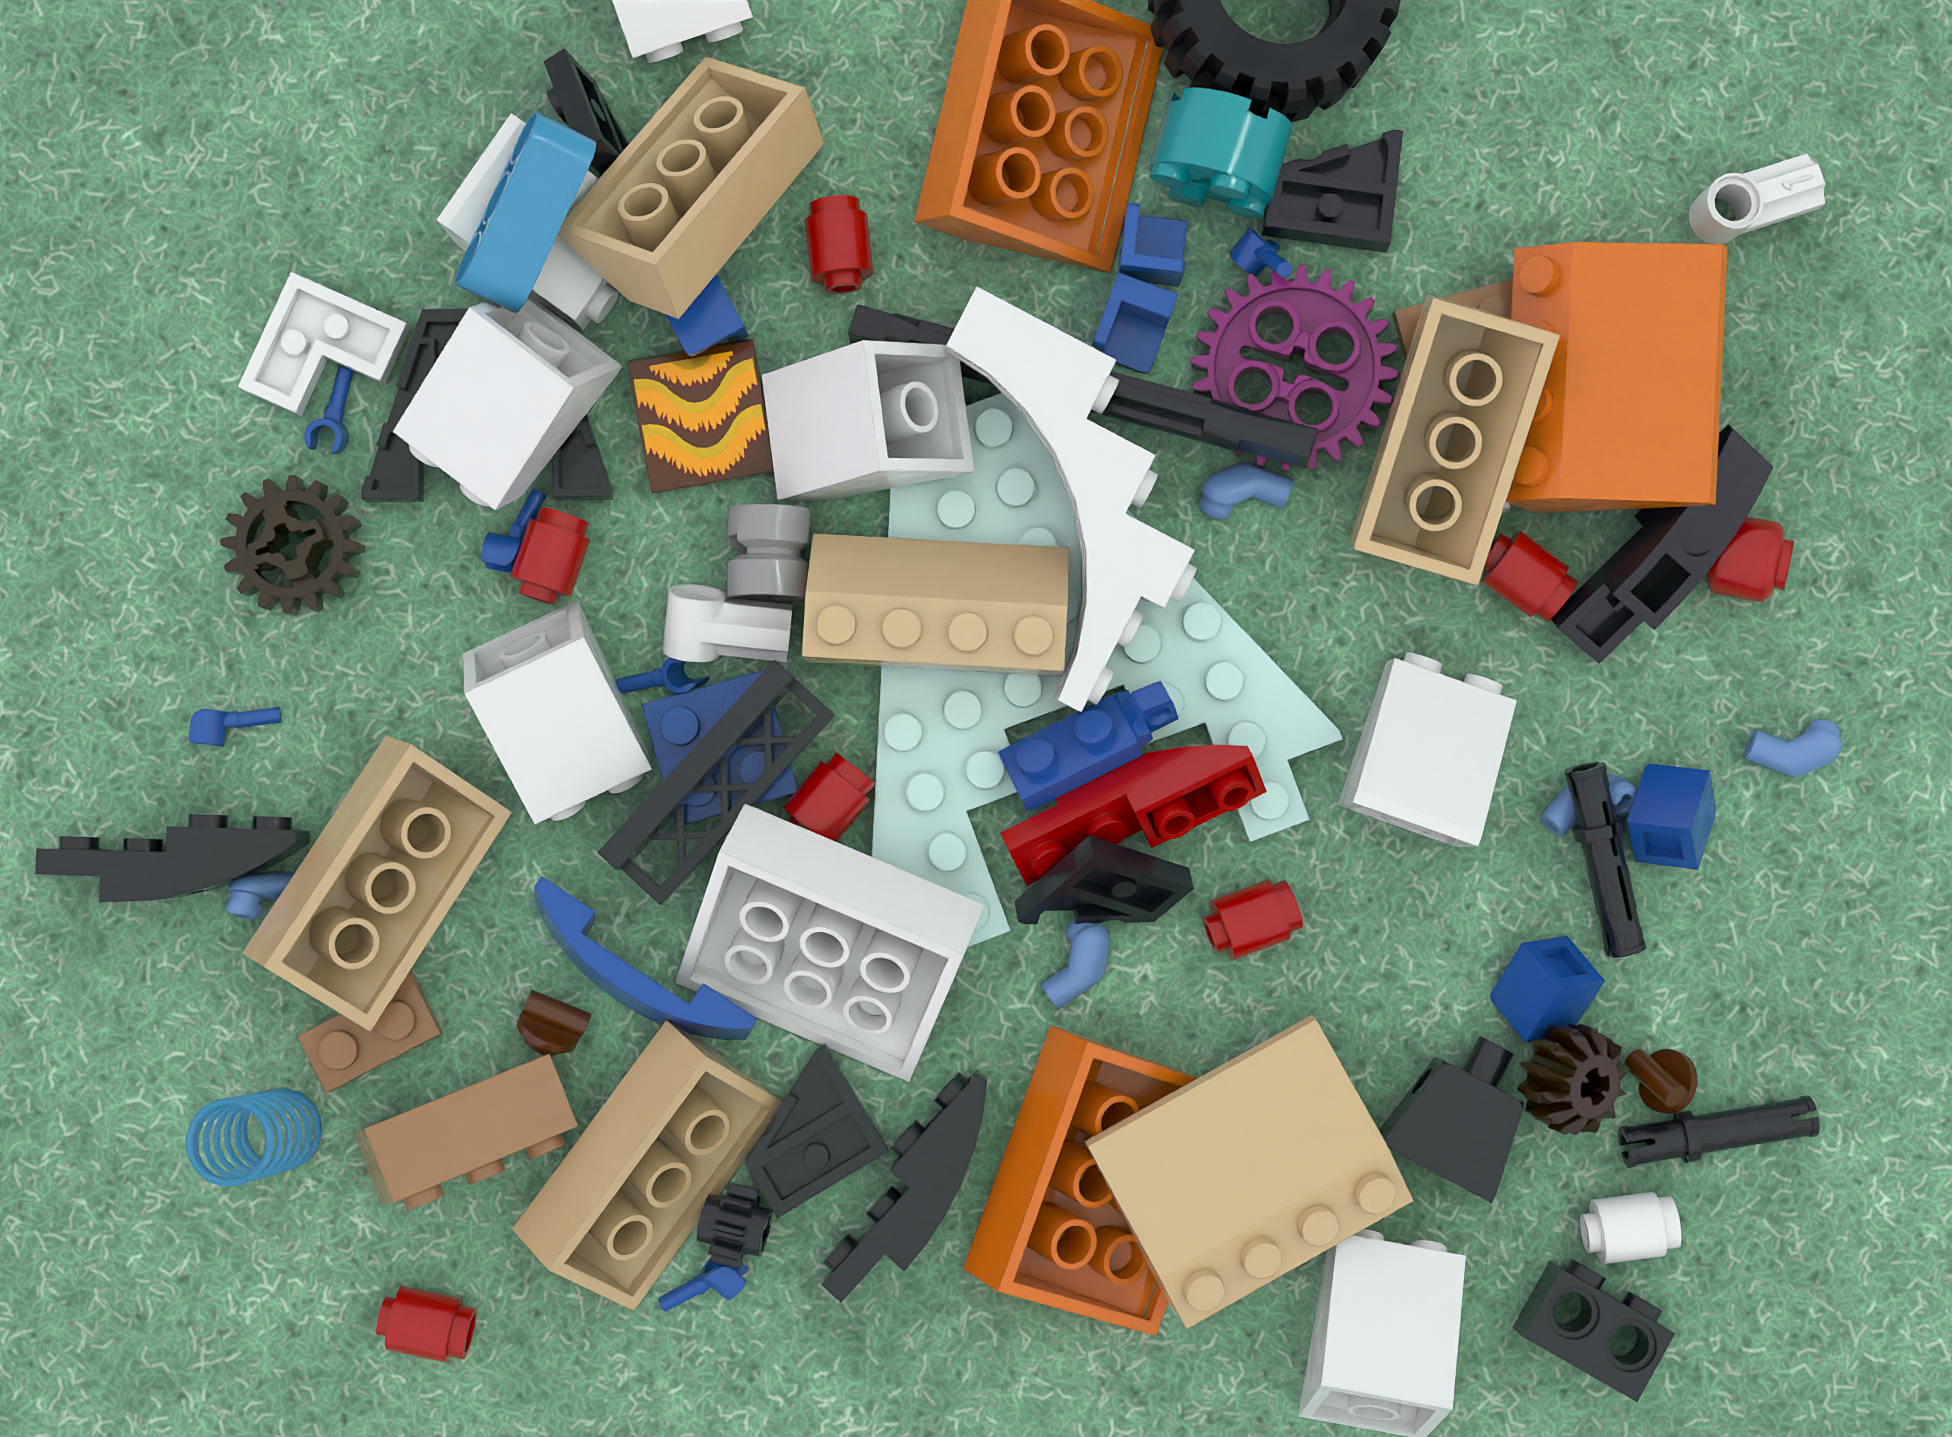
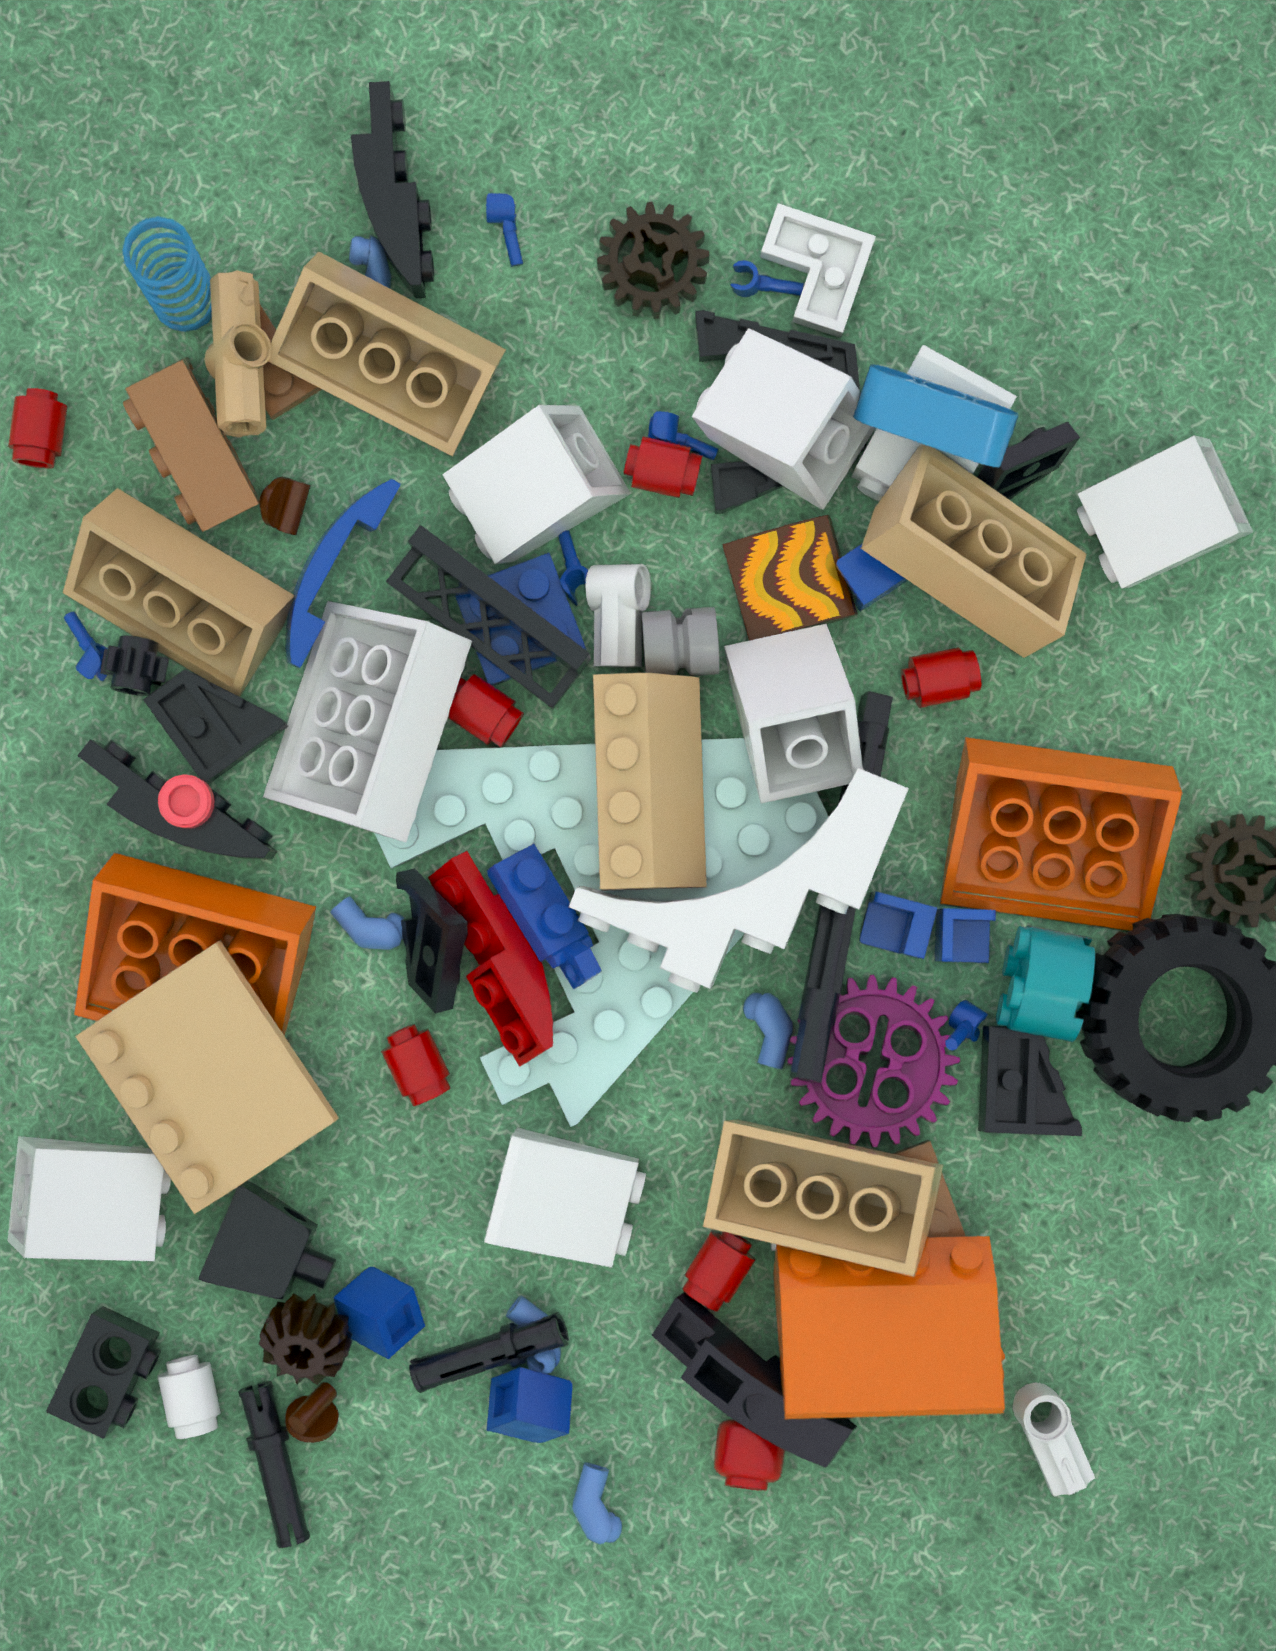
camera: 90 degrees right, 0 degrees up
(361, 1062) = (238, 354): none -> tan piece
(910, 1171) = (186, 801): none -> coral tile

